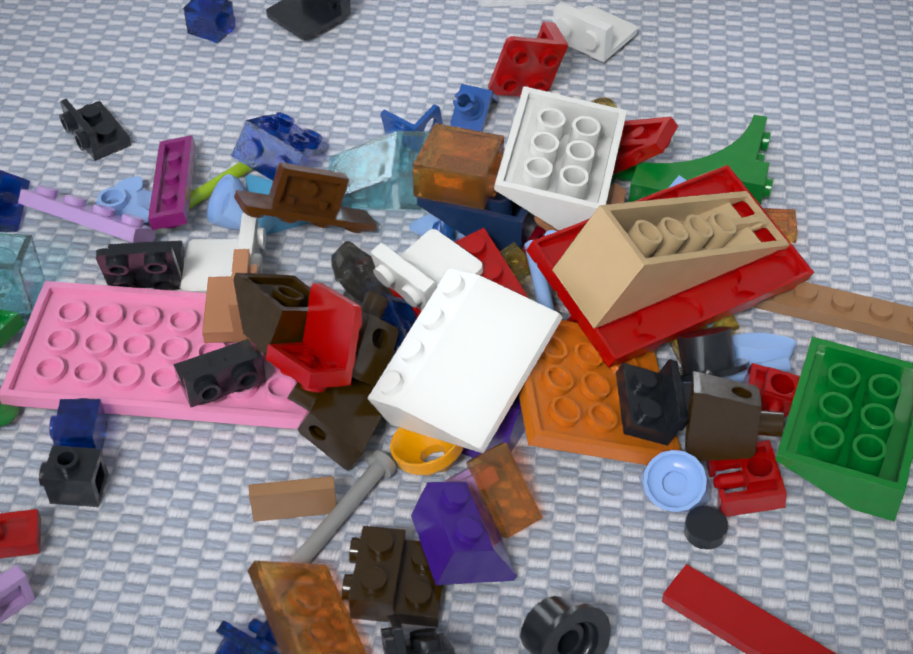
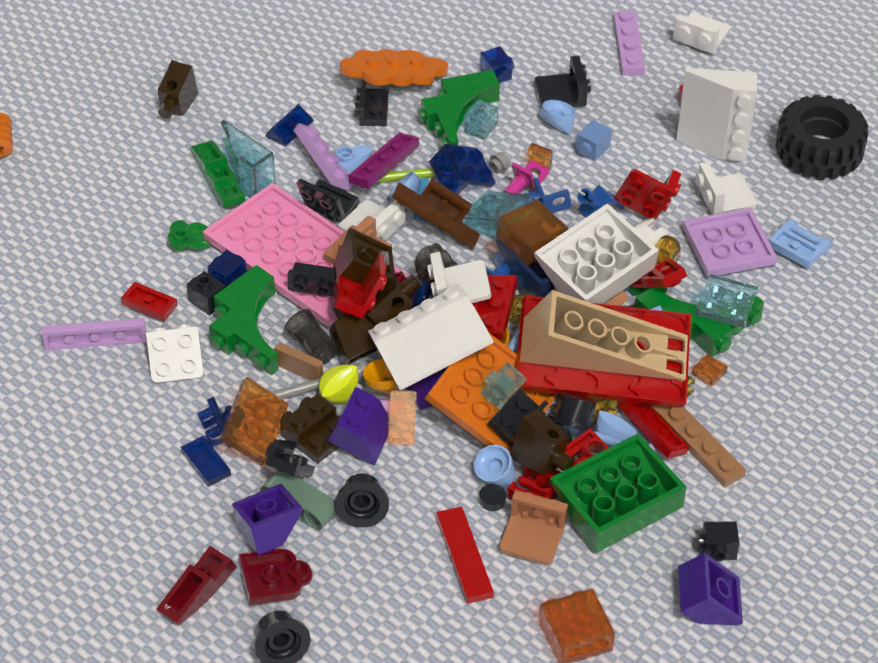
camera: 35 degrees right, 0 degrees up
(86, 72) = (393, 67): none -> orange plate
(100, 591) = (174, 354): none -> white bracket
(161, 492) = (238, 313): none -> green arch
(196, 80) = (454, 99): none -> green arch
(247, 81) = (481, 119): none -> clear light blue brick
(278, 452) = (310, 336): none -> clear smoke plant
(314, 118) = (499, 162): none -> light grey plate
(332, 37) = (558, 115): none -> light blue piece
(357, 89) = (540, 155): none -> clear orange tile
(363, 118) = (524, 178): none -> dark pink bracket
(373, 494) = (338, 383): none -> neon yellow piece
(399, 43) = (593, 140): none -> medium blue brick
(608, 369) = (502, 385): none -> clear light blue brick
(652, 78) = (729, 242): none -> lavender plate
(722, 46) = (799, 244): none -> light blue plate
(738, 133) = (727, 300): none -> clear light blue plate
(795, 323) = (655, 428): none -> red tile
(802, 536) = (534, 528): none -> nougat bracket

